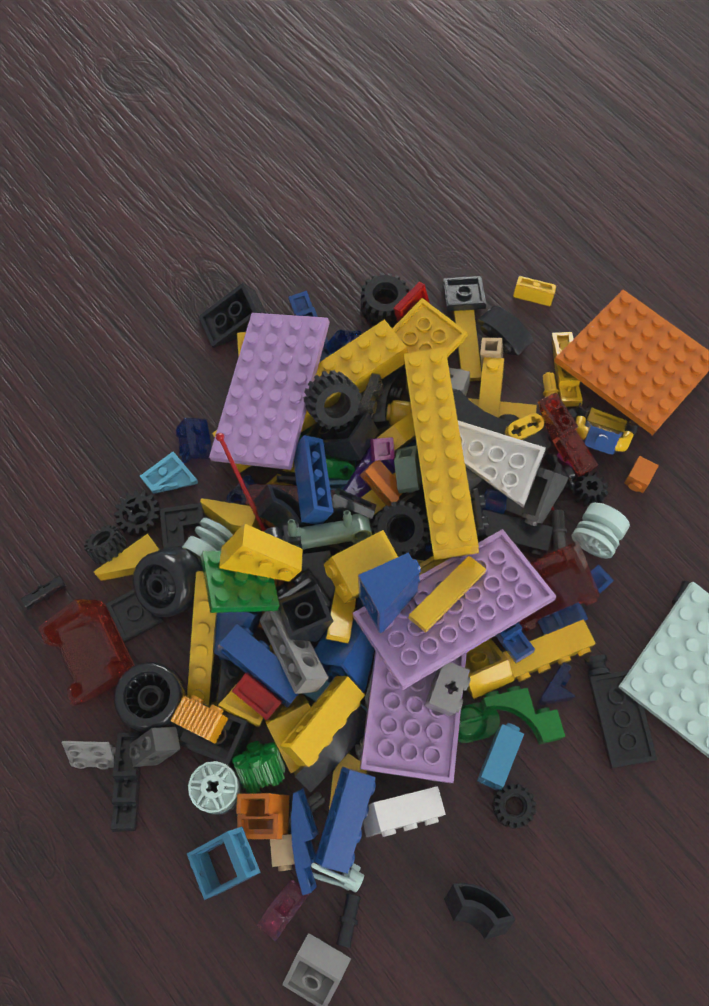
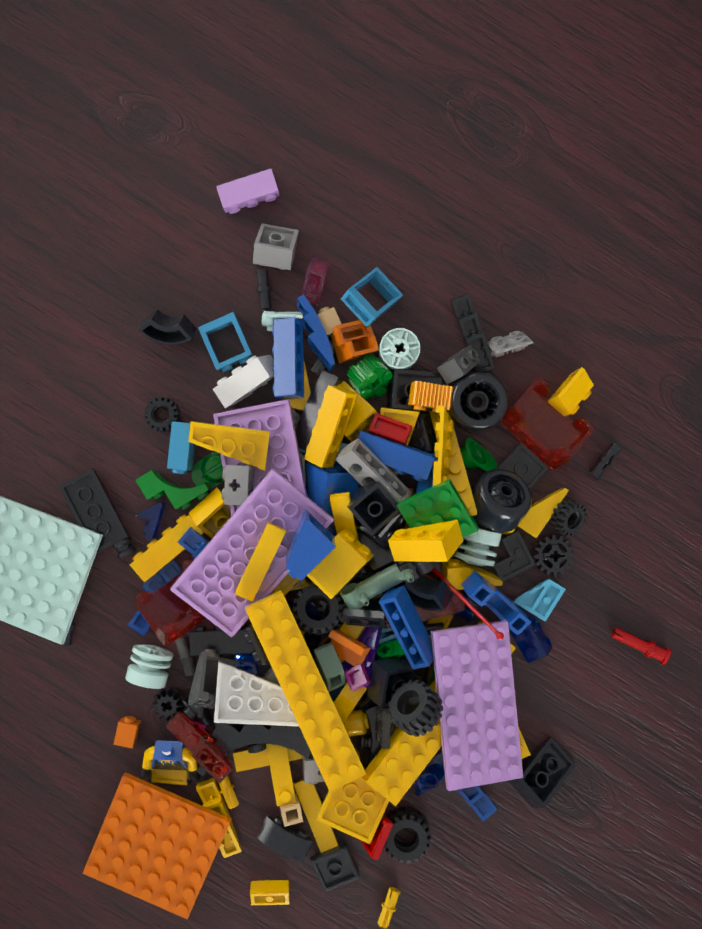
camera: 160 degrees right, 20 degrees up
(46, 676) = (571, 392): none -> yellow slope
(82, 396) = (649, 648): none -> red pin
(175, 638) = (476, 456): none -> green piece
(206, 656) = (443, 430): none -> yellow wing
(220, 490) = (486, 594): none -> blue arch
(416, 894) = (219, 324): none -> dark azure window
(423, 246) = (388, 907): none -> yellow axle
(430, 734) = (234, 442): none -> yellow wing
(522, 423) = (242, 744): yellow beam -> none

